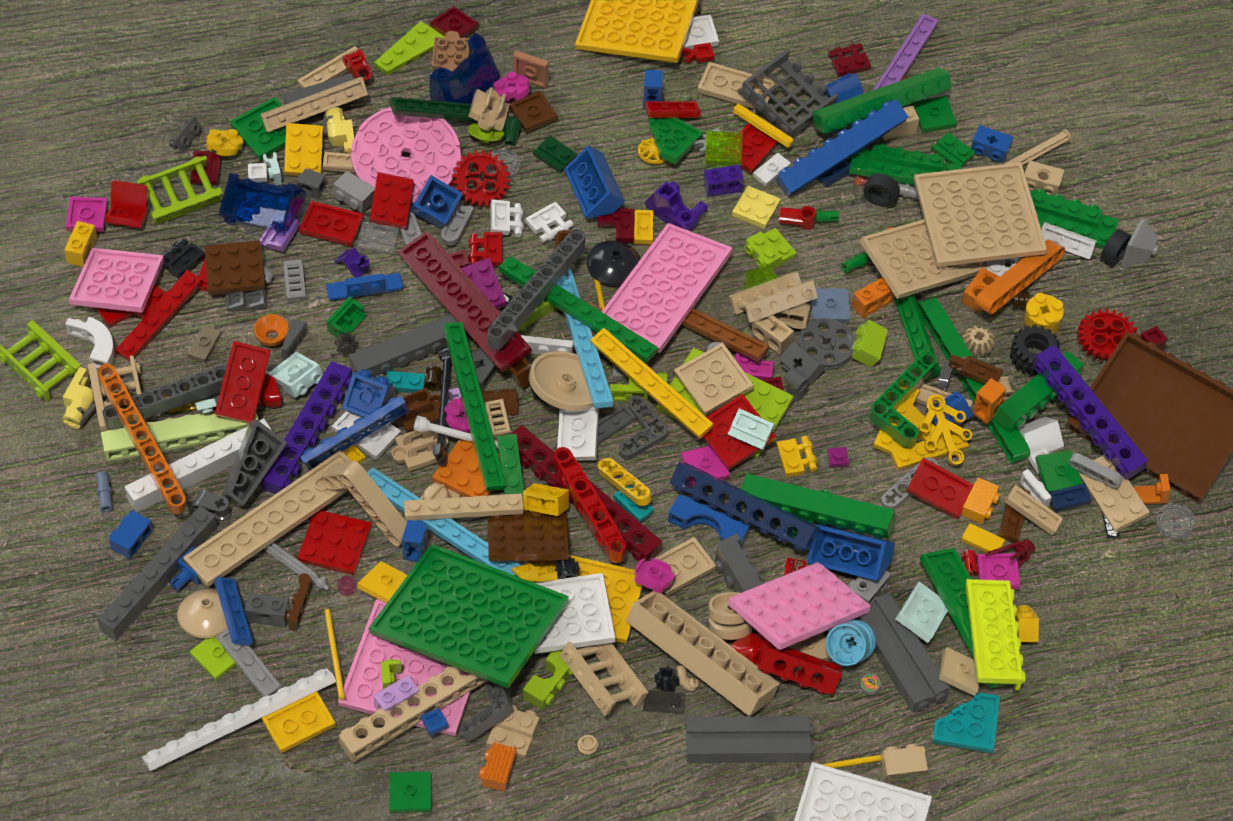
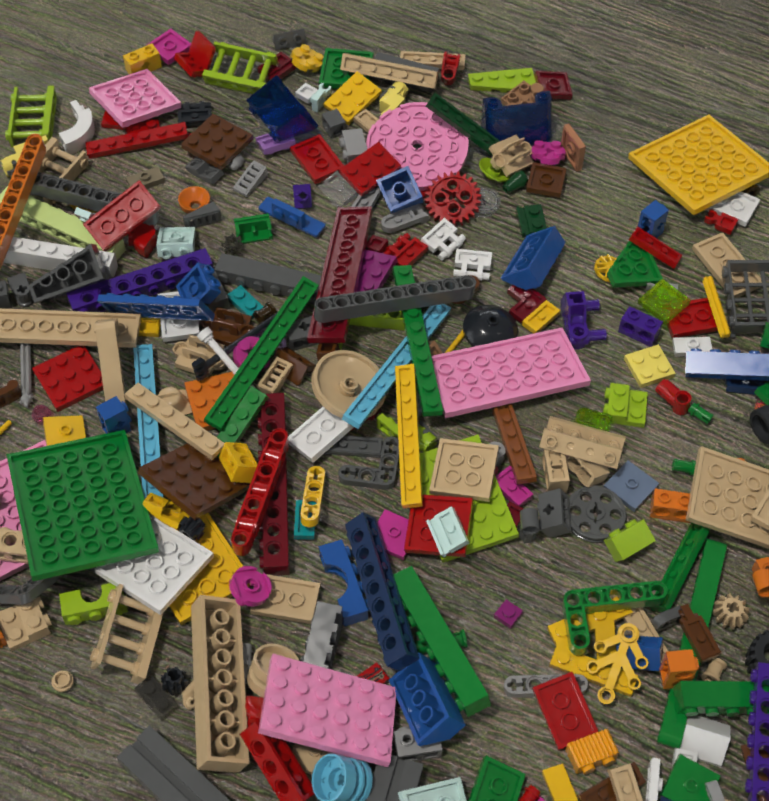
camera: 45 degrees right, 0 degrees up
(543, 345) = (366, 347): white plate -> none
(790, 456) = (469, 582): yellow plate -> none

